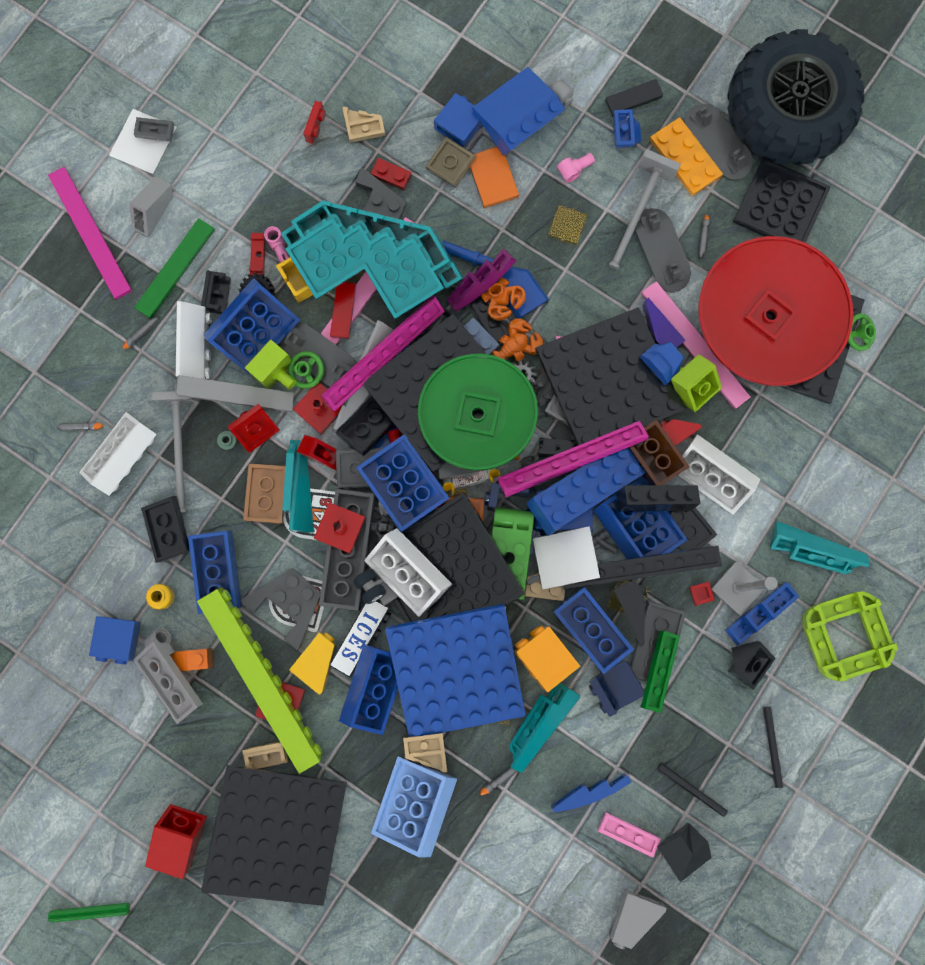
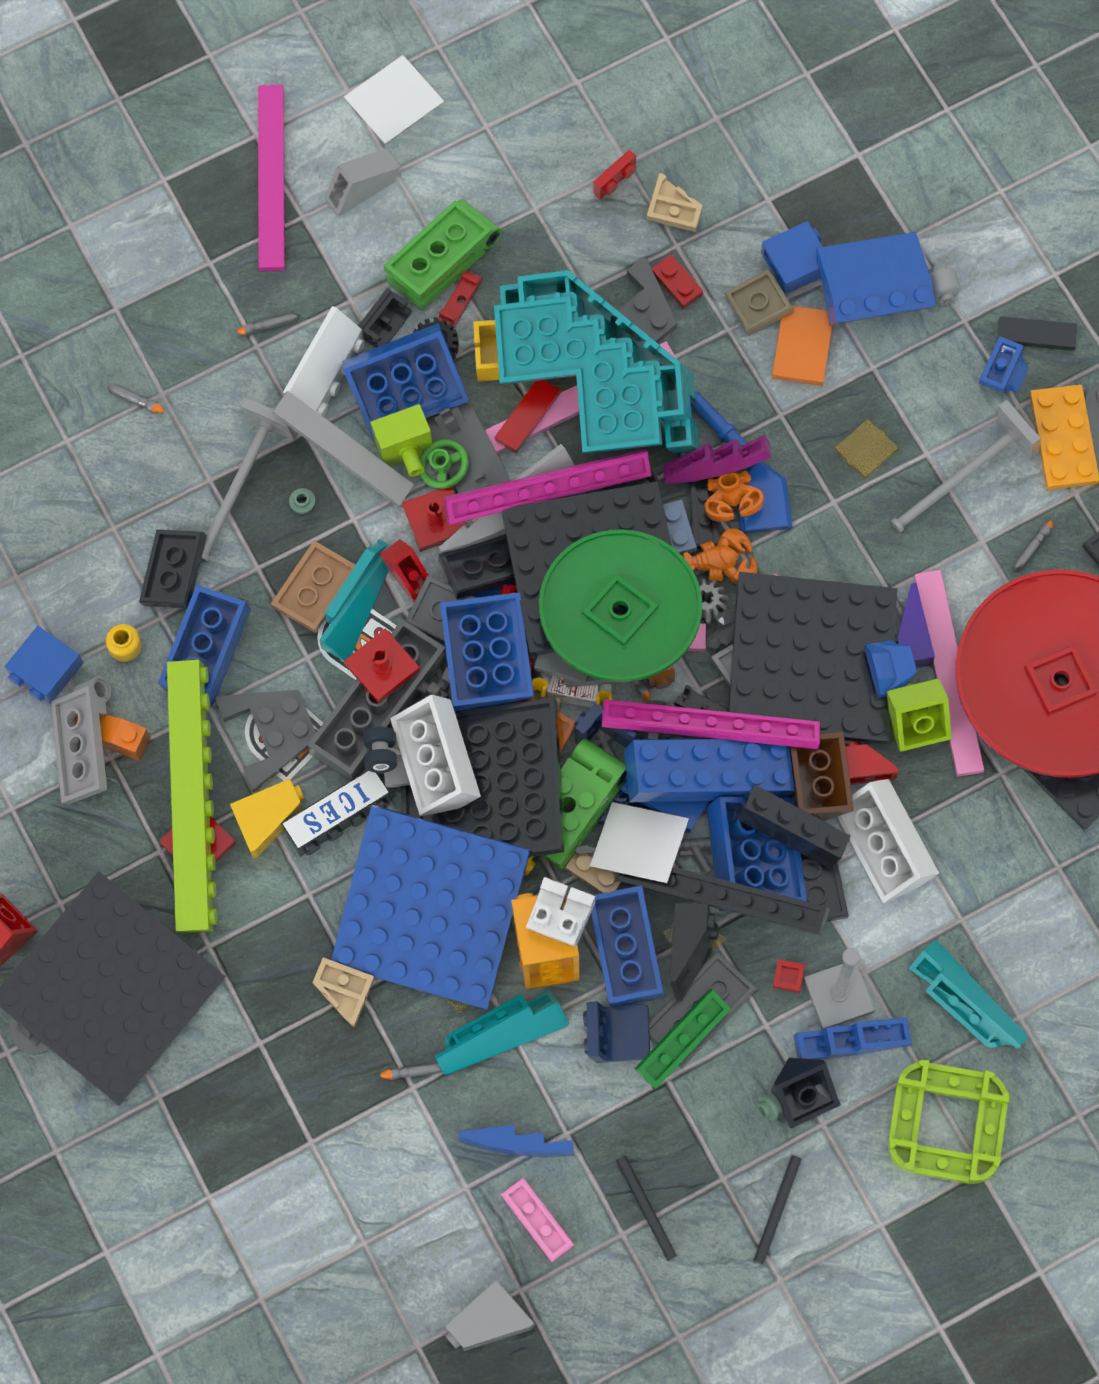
camera: 30 degrees right, 10 degrees down
(117, 454) = (164, 452): white slope -> none
(153, 129) = (414, 91): dark grey plate -> none
(174, 268) = (345, 269): green tile -> none
(229, 229) = (441, 253): none -> bright green hinge
(253, 428) = (342, 500): red tile -> none
(265, 755) = (150, 893): tan hinge -> none
(276, 245) = (489, 298): bright pink pin -> none
(370, 691) = (314, 878): blue brick -> none
(414, 807) = (292, 1046): light blue slope -> none
(556, 656) = (549, 918): none -> white hips
(571, 169) = (906, 382): bright pink pin -> none
(663, 250) = (970, 537): dark grey piece -> none
(685, 851) = (596, 1274): black slope -> none
(734, 684) = (769, 1107): none -> sand green plate

